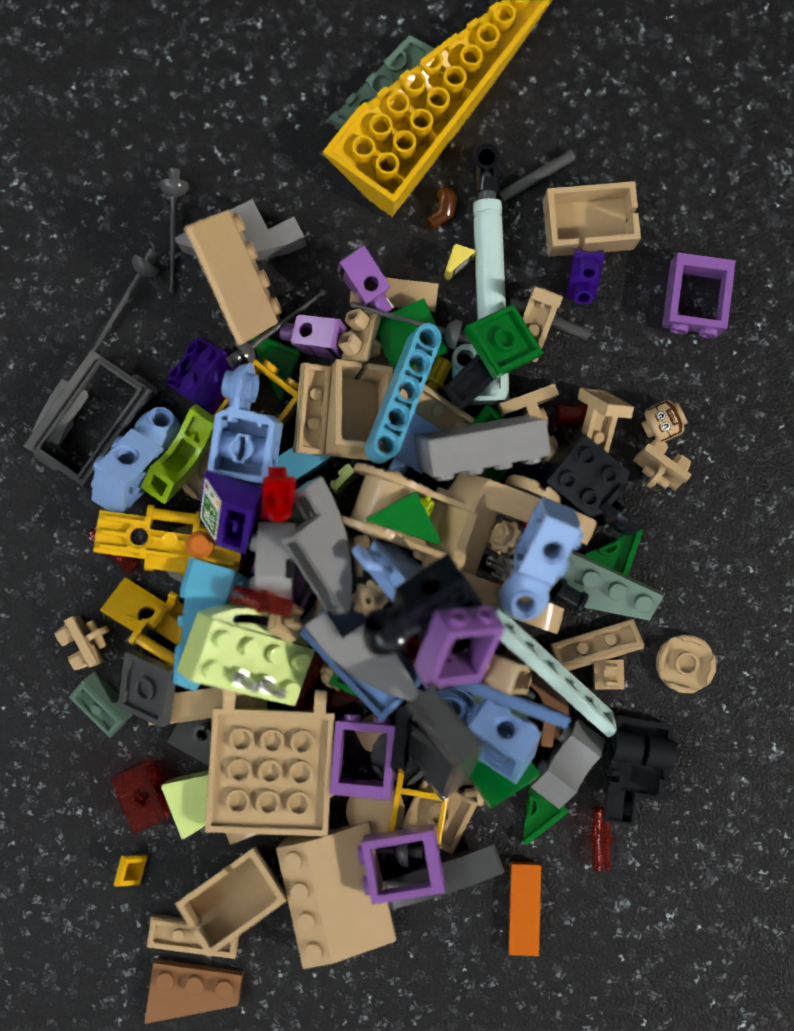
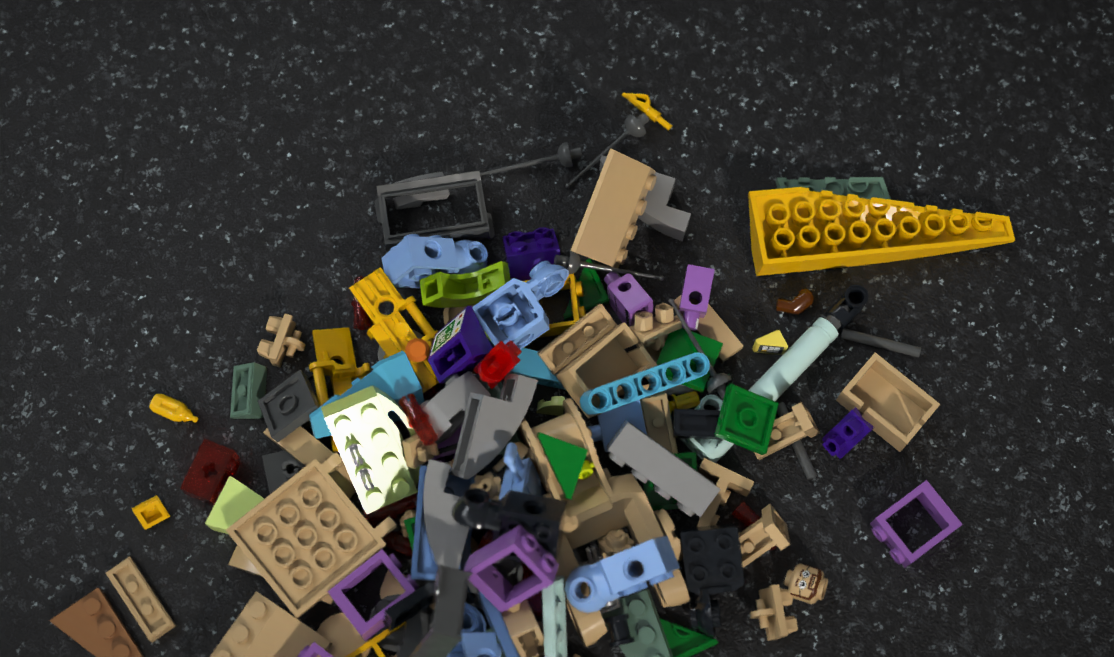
camera: 45 degrees right, 15 degrees down
(58, 779) = (171, 408): none -> yellow piece
(167, 162) = (646, 108): none -> yellow hand
(232, 901) = (190, 596): tan piece -> none

